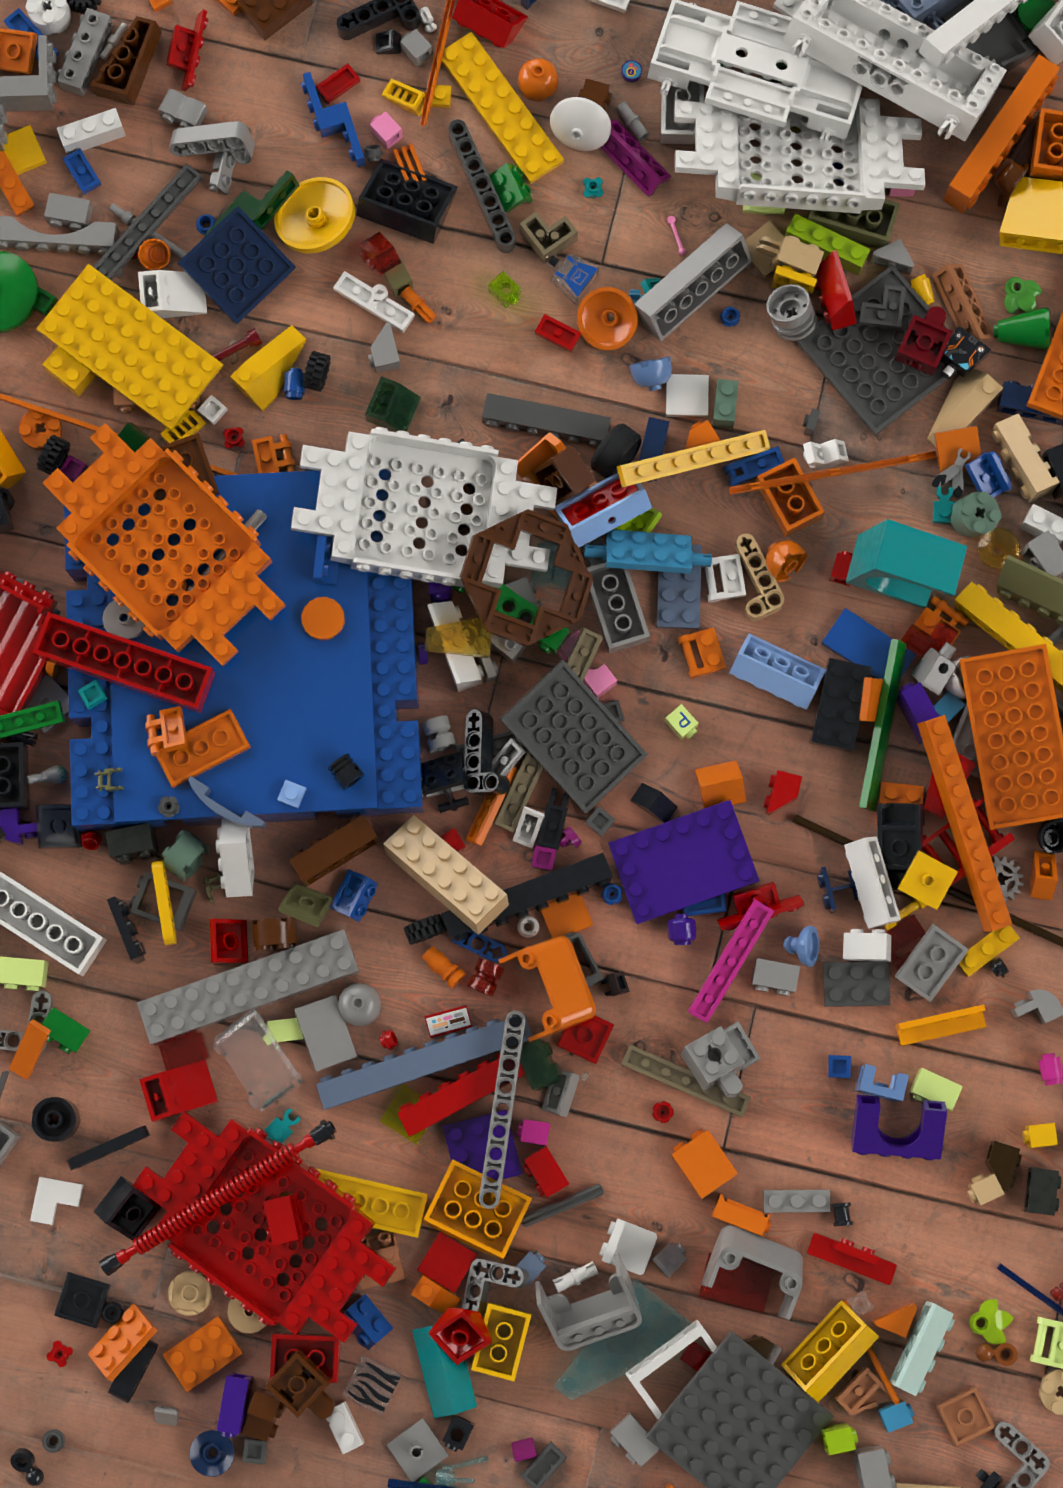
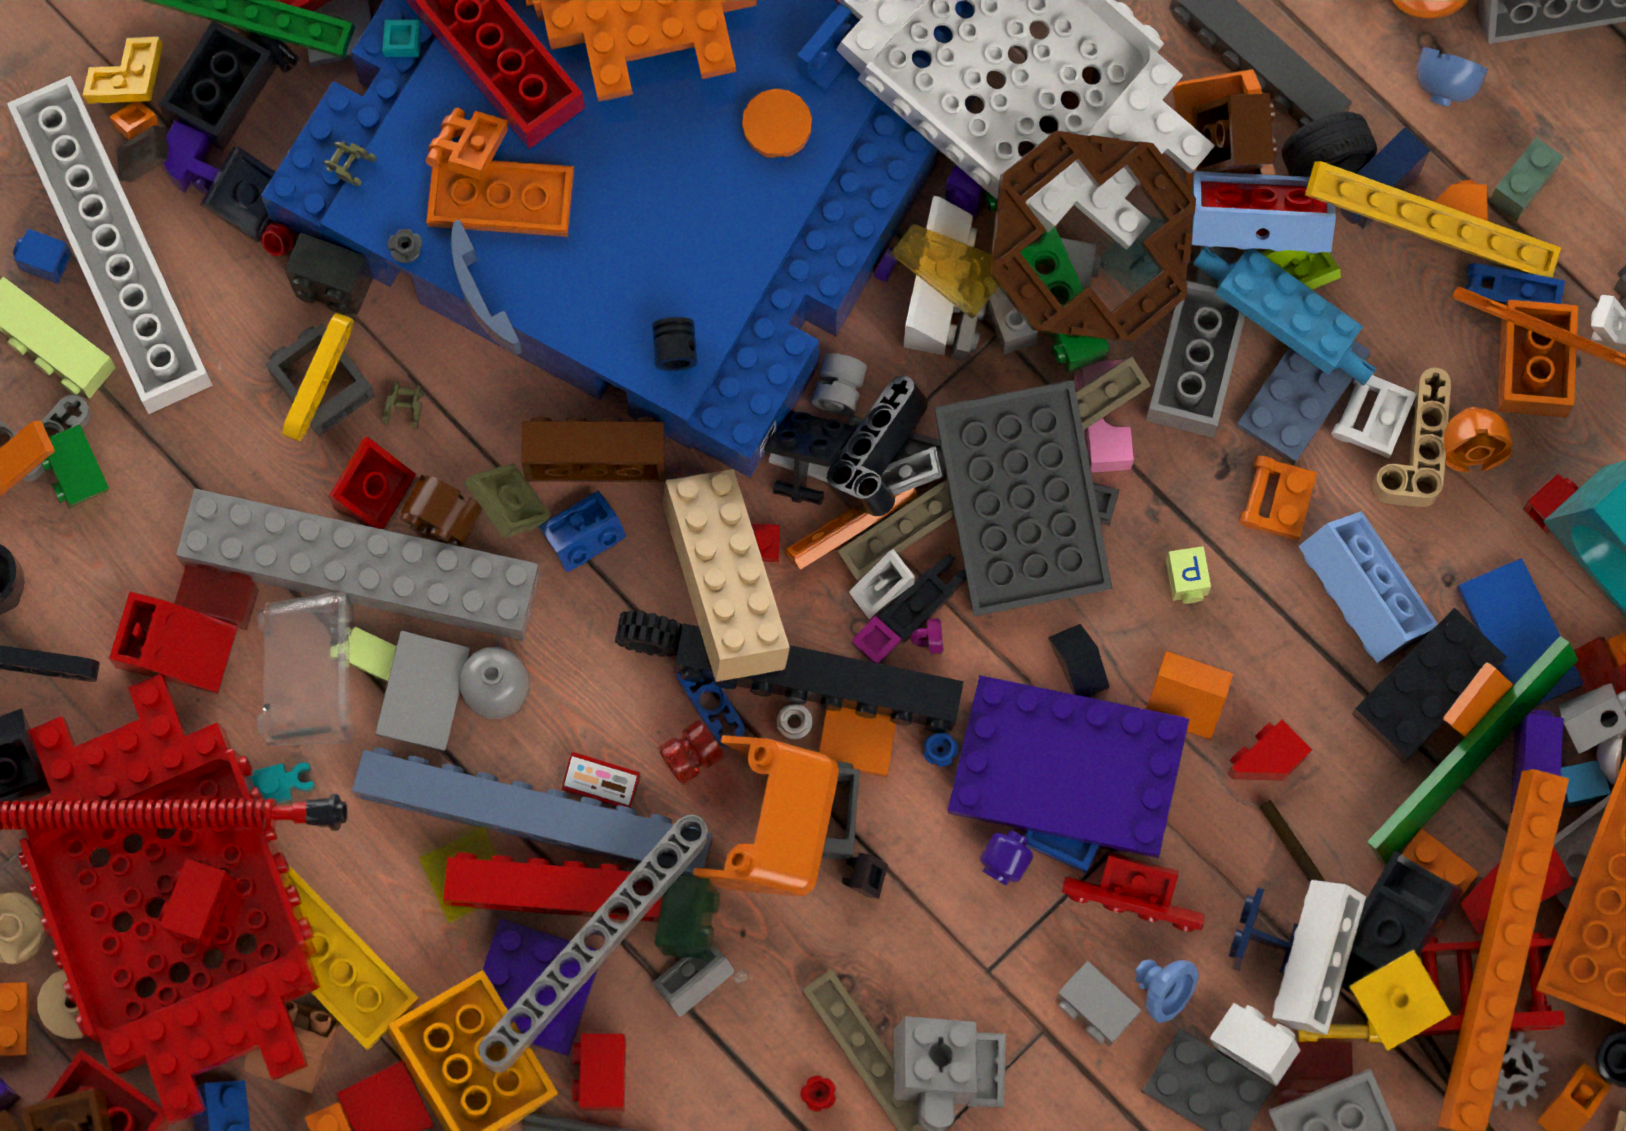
camera: 30 degrees right, 5 degrees down
(54, 775) = (283, 123): light grey piece -> none
(127, 929) = (245, 384): black plate -> none
(185, 855) = (388, 334): sand green brick -> none
(235, 859) = (452, 377): white brick -> none
(291, 794) = (582, 331): light blue plate -> none
(388, 1039) = (503, 754): red plate -> none
(441, 965) = (641, 699): orange axle -> none
(533, 1132) = (620, 1006): dark pink brick -> none
(586, 1038) = (778, 924): red tile -> none
(600, 821) = (987, 639): dark grey plate -> none
(687, 396) = (1479, 139): white tile -> none
(730, 311) = (1609, 60): blue plate -> none
(730, 961) = (1047, 941): dark pink plate -> none

